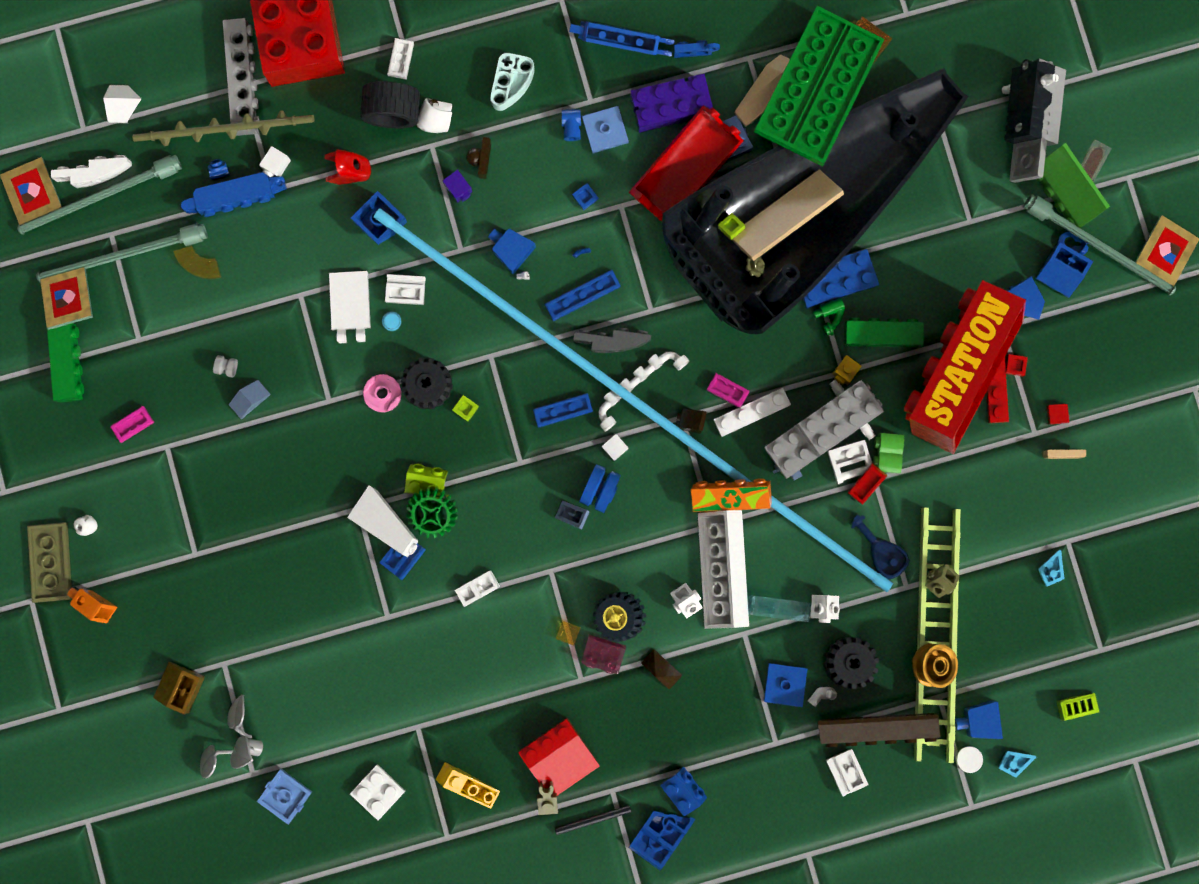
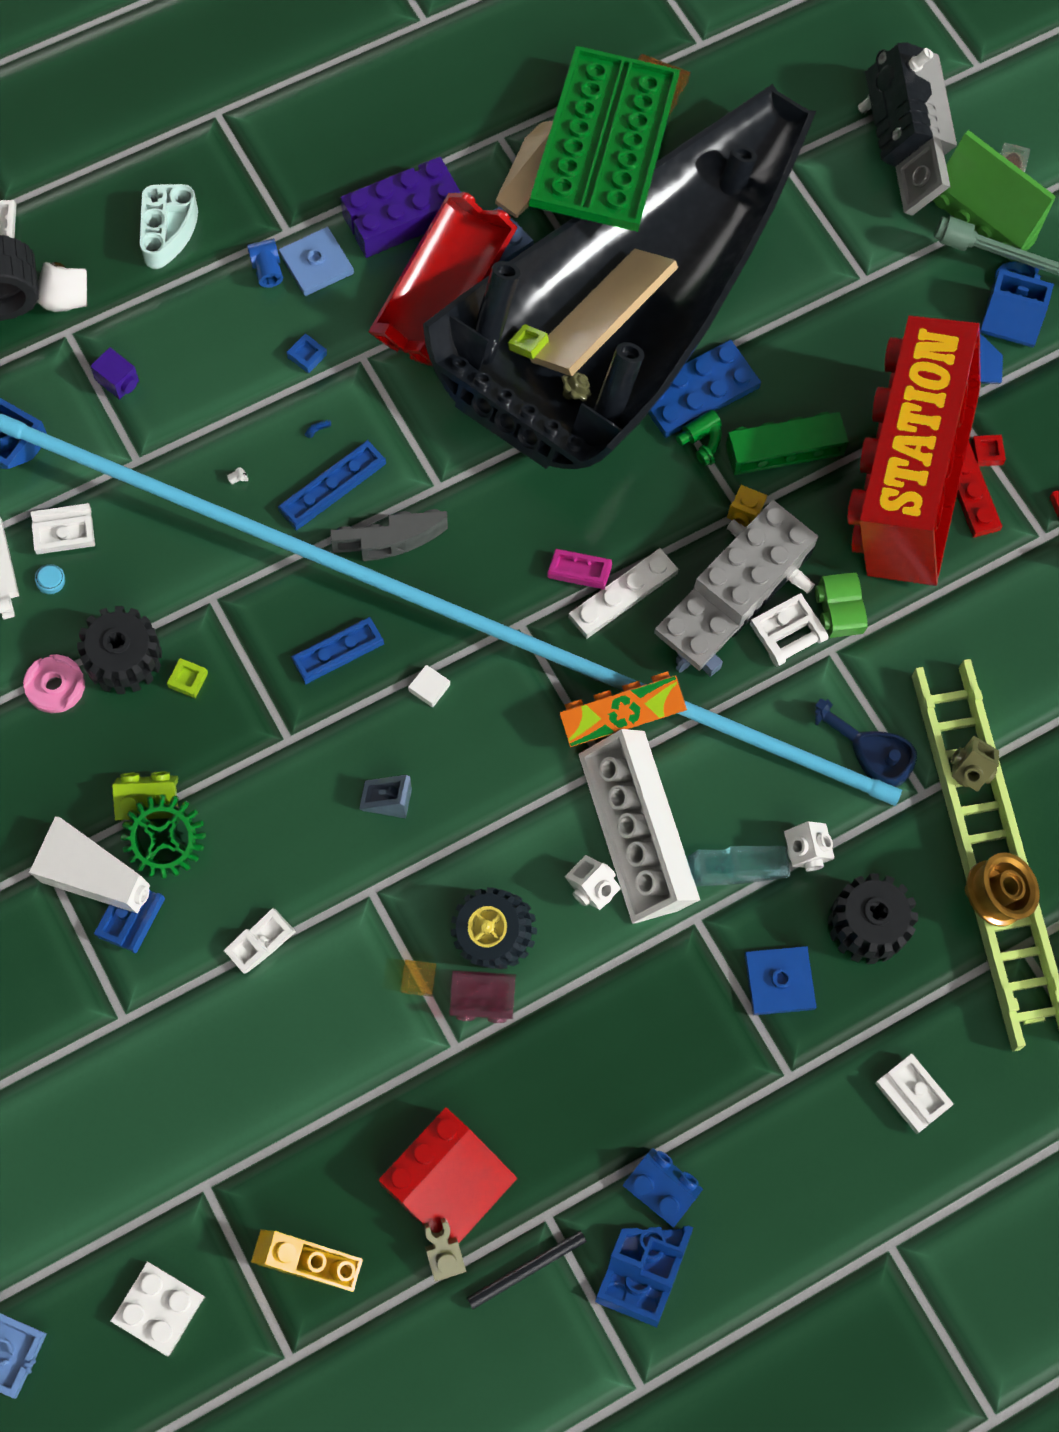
camera: 15 degrees left, 15 degrees down
(480, 157) = (142, 329): dark brown tile -> none
(511, 248) = (212, 440): blue torso -> none
(599, 488) = (424, 743): blue wheel -> none
(621, 37) = (312, 138): blue hinge -> none
(640, 375) = (444, 576): white bar -> none
(661, 669) = (579, 1001): dark brown slope -> none
(691, 420) = (537, 616): dark brown slope -> none
(700, 48) = (420, 135): blue hinge -> none
(822, 693) = (841, 980): white arm -> none
(867, 483) = (822, 653): red tile -> none
(879, 728) = (947, 1004): dark brown slope -> none

